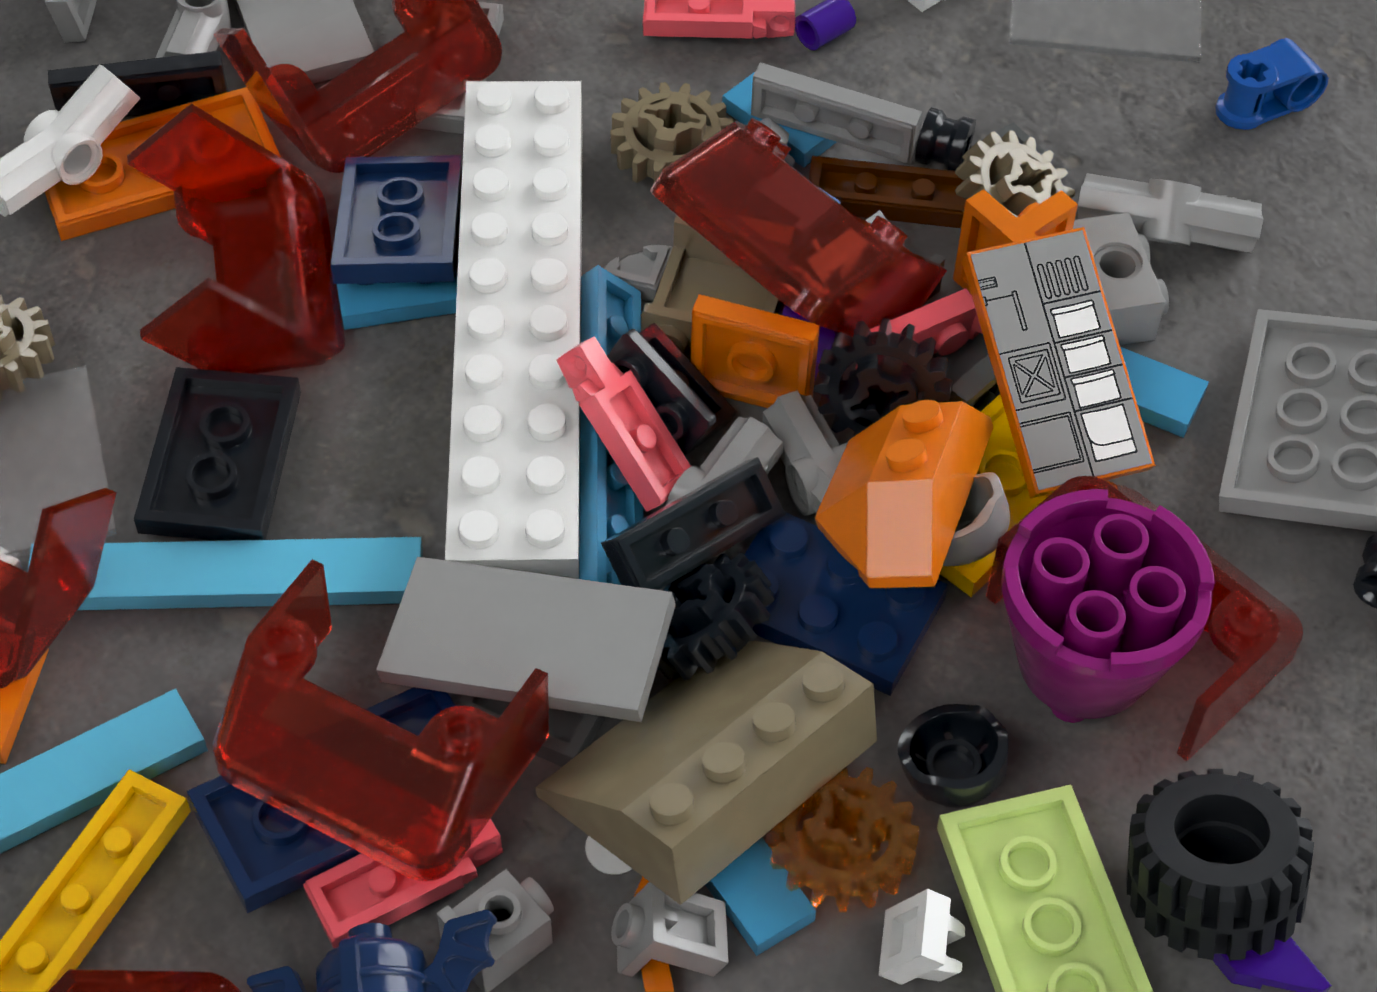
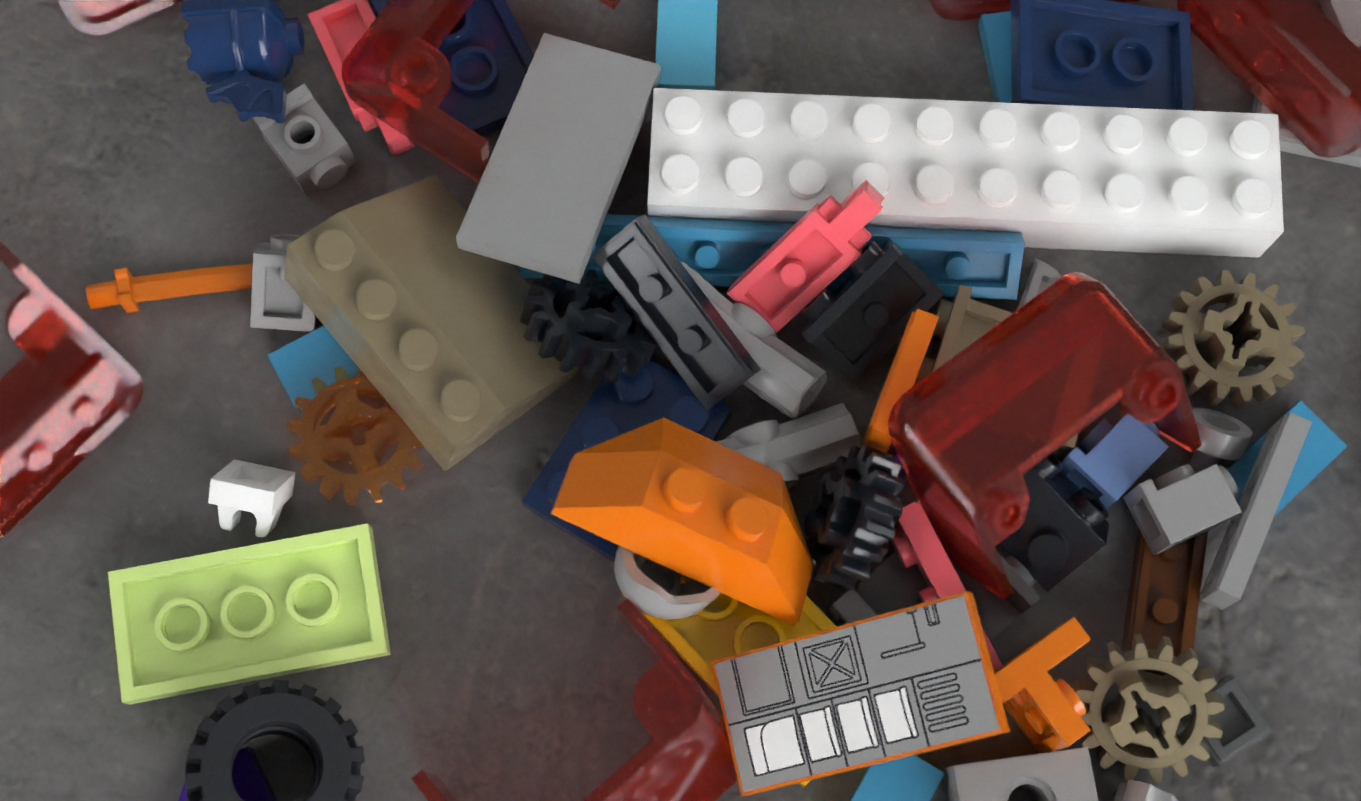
camera: 95 degrees right, 20 degrees up
(839, 157) = (1182, 505): none -> light grey brick
(944, 139) = (1235, 641): black wheel -> none
(953, 767) = (432, 551): black helmet -> none
(1102, 600) = (481, 668): magenta cone -> none

